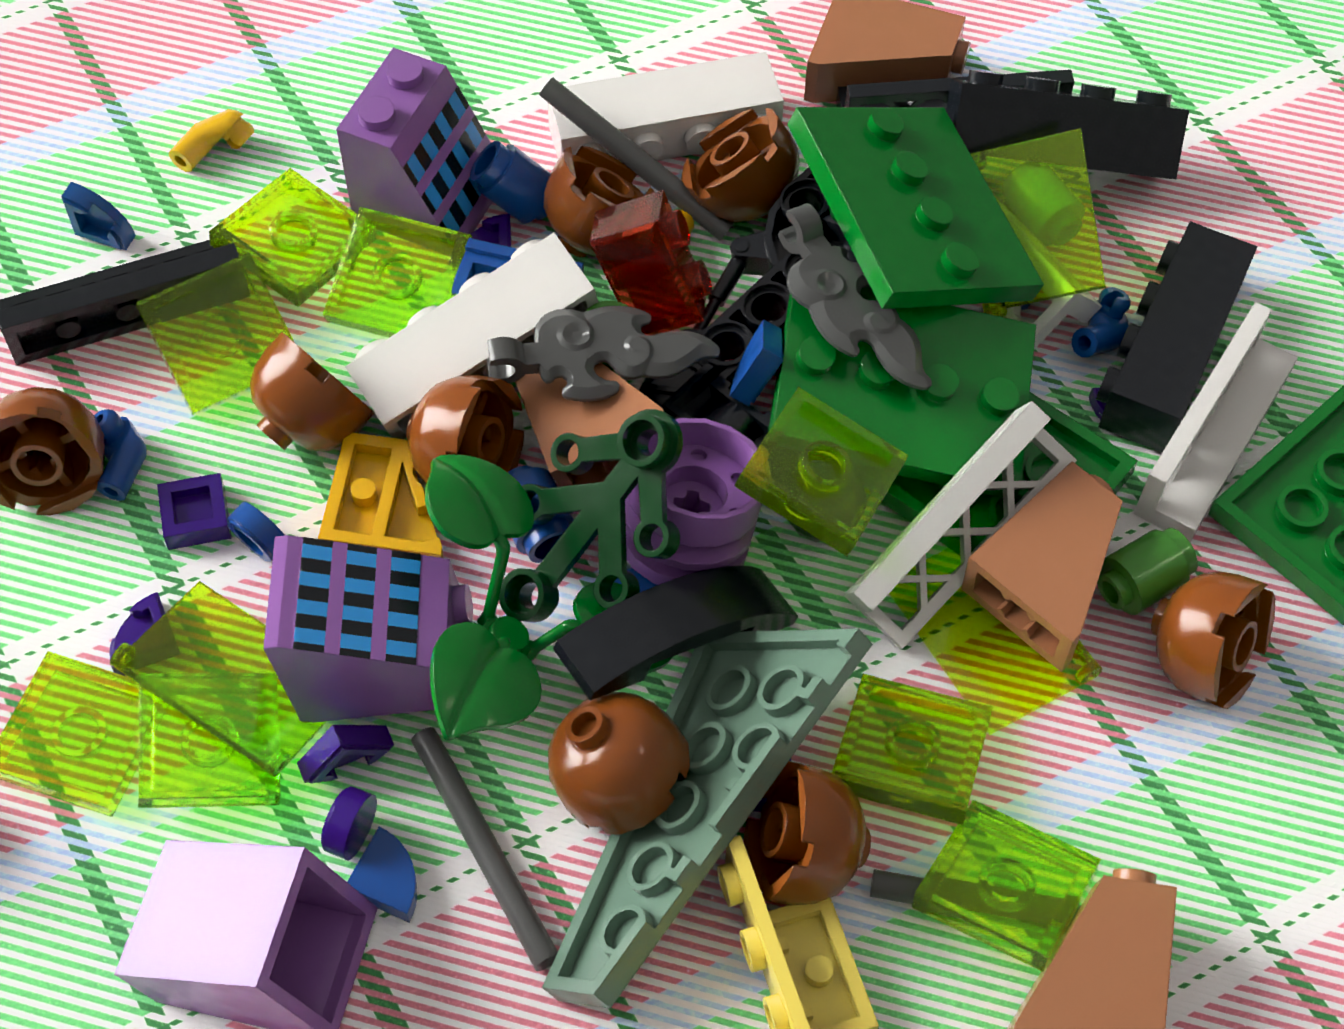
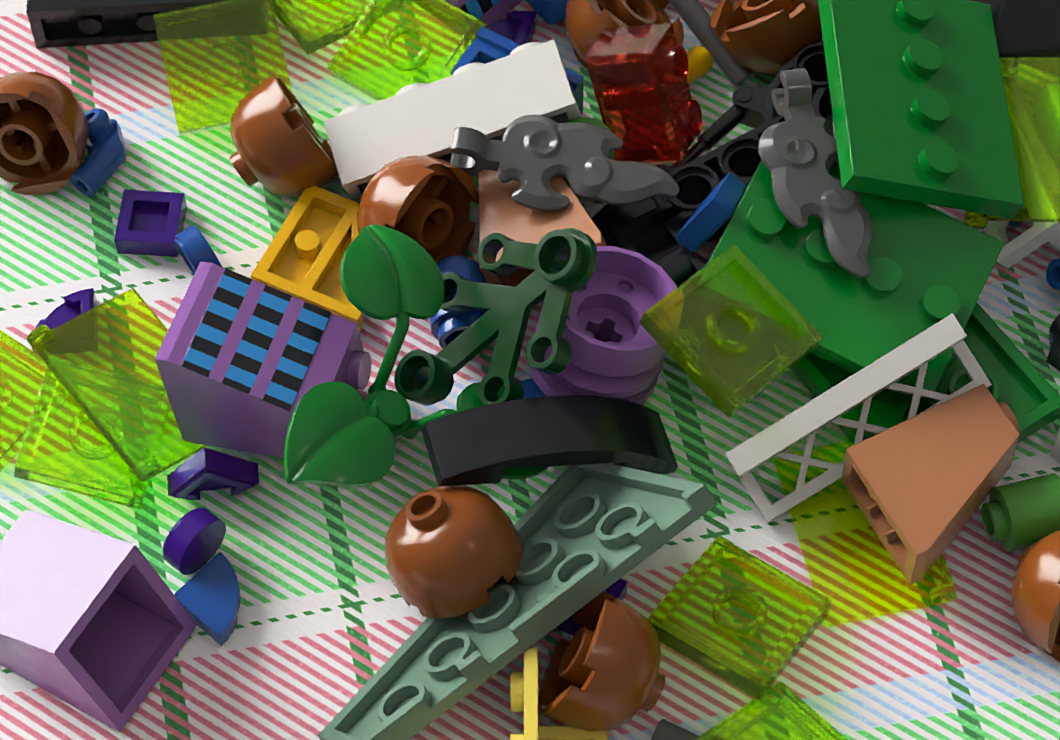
camera: 20 degrees right, 0 degrees up
(485, 849) = (310, 600): dark grey bar -> none

